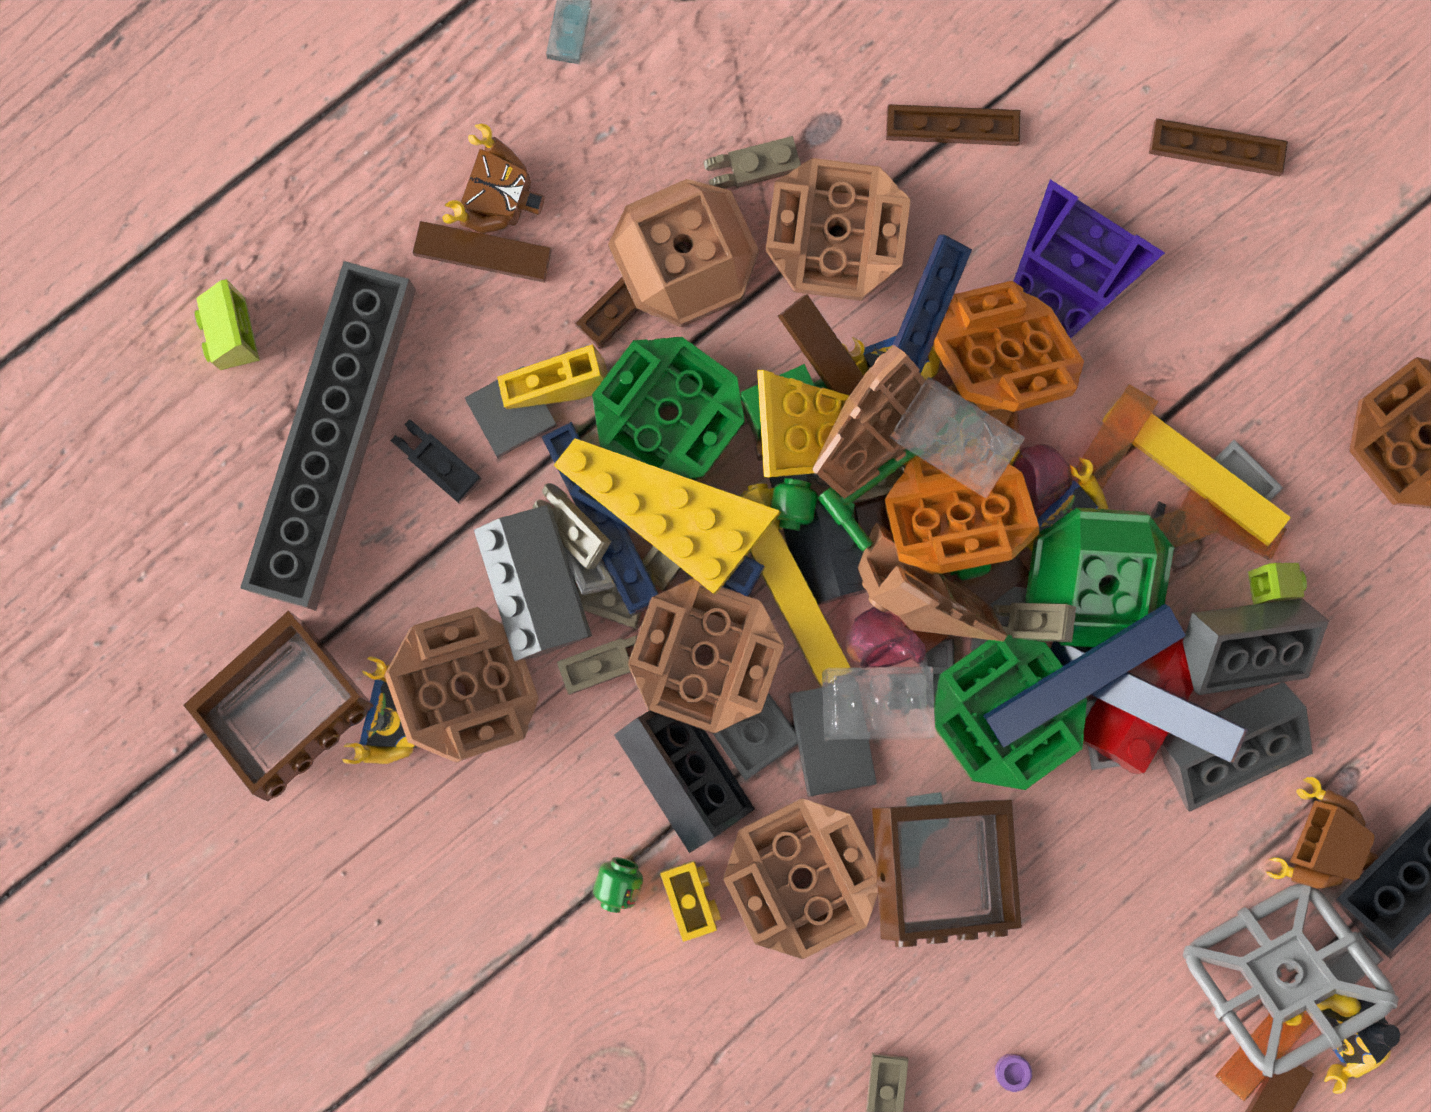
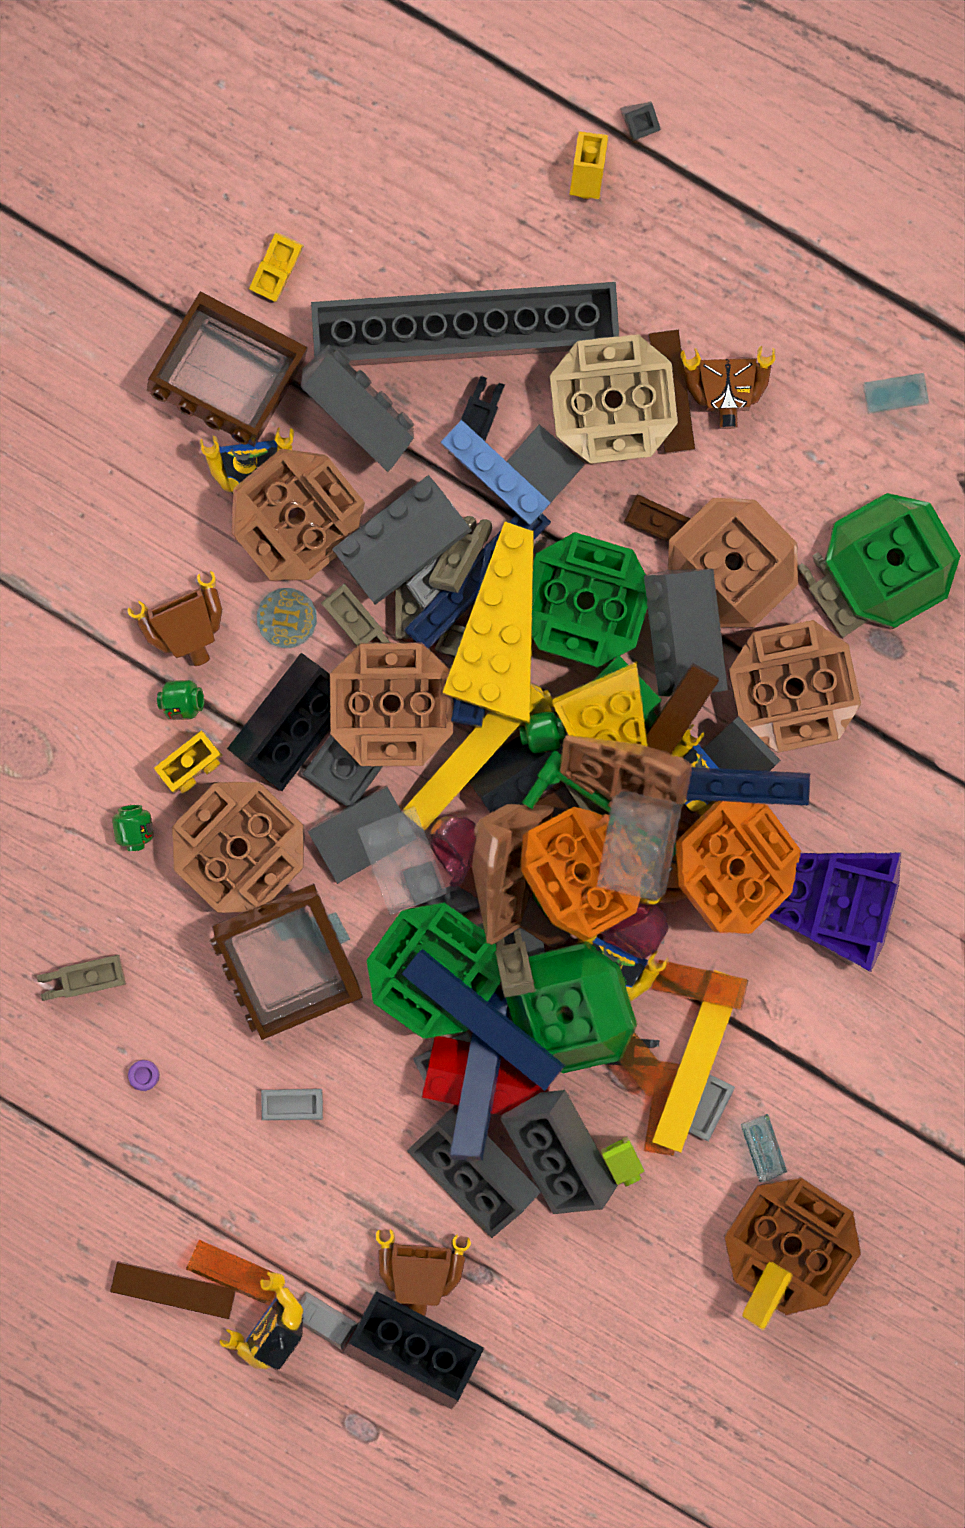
camera: 75 degrees right, 5 degrees up
(188, 184) = (640, 120): none -> dark grey slope
(192, 615) = (276, 267): none -> yellow slope
(214, 251) = (588, 165): none -> yellow slope
(226, 327) = (526, 202): lime slope -> none
(371, 576) = (358, 406): none -> dark grey slope
(456, 273) = (646, 391): none -> tan piece
(498, 459) = (495, 472): none -> medium blue plate
(536, 851) = (184, 623): none -> dark orange torso
(554, 380) = (579, 495): yellow slope -> none
(571, 737) = (286, 618): none -> clear light blue tile
(731, 118) = (866, 578): none -> green piece
(733, 316) = (684, 626): none -> dark grey slope
(738, 988) = (132, 827): none -> green head
(883, 305) = (740, 749): none -> dark grey tile
(953, 125) = (929, 755): reddish brown tile -> none
(1099, 919) = (292, 1104): none -> light grey tile
(1285, 999) = (295, 1285): light grey plate -> none
(1309, 432) = (763, 1148): none -> clear light blue plate

